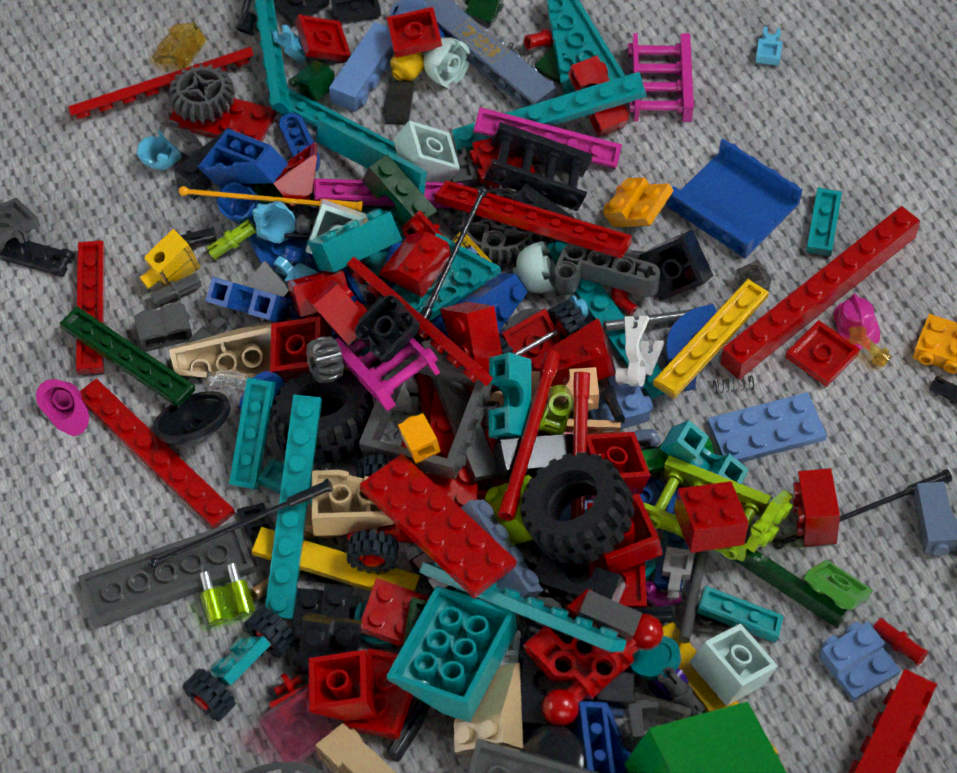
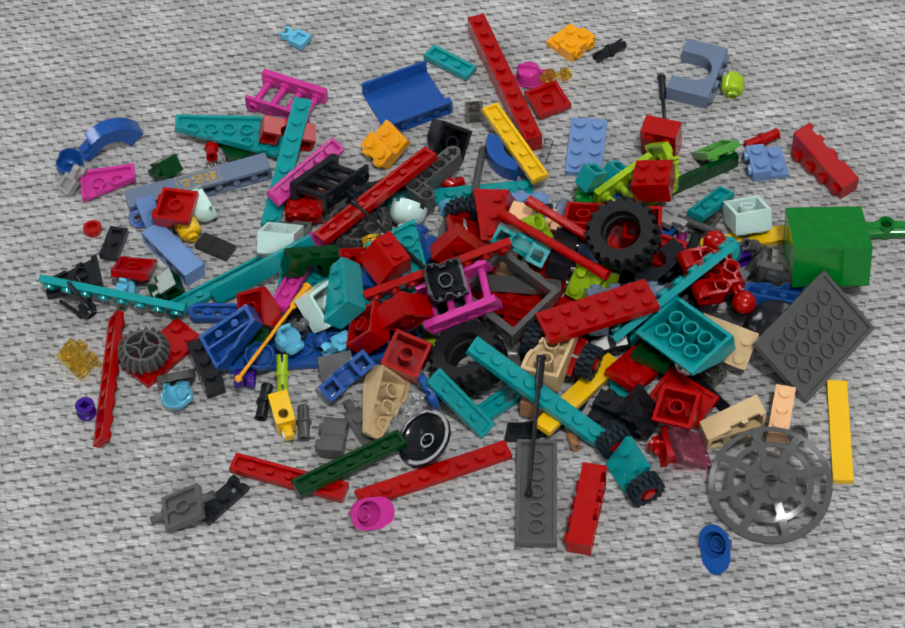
camera: 65 degrees left, 5 degrees down
(110, 79) = (90, 410): none -> dark purple wheel
(152, 638) = (586, 509): none -> red wedge
(211, 211) = (248, 379): none -> dark purple wheel
(226, 602) = (573, 460): clear neon green piece -> none
(325, 359) = (438, 332): dark grey gear -> none
(419, 437) = (532, 296): light orange brick -> none
(610, 614) = (703, 246): dark grey slope -> none
(641, 362) = (513, 179): white piece -> none

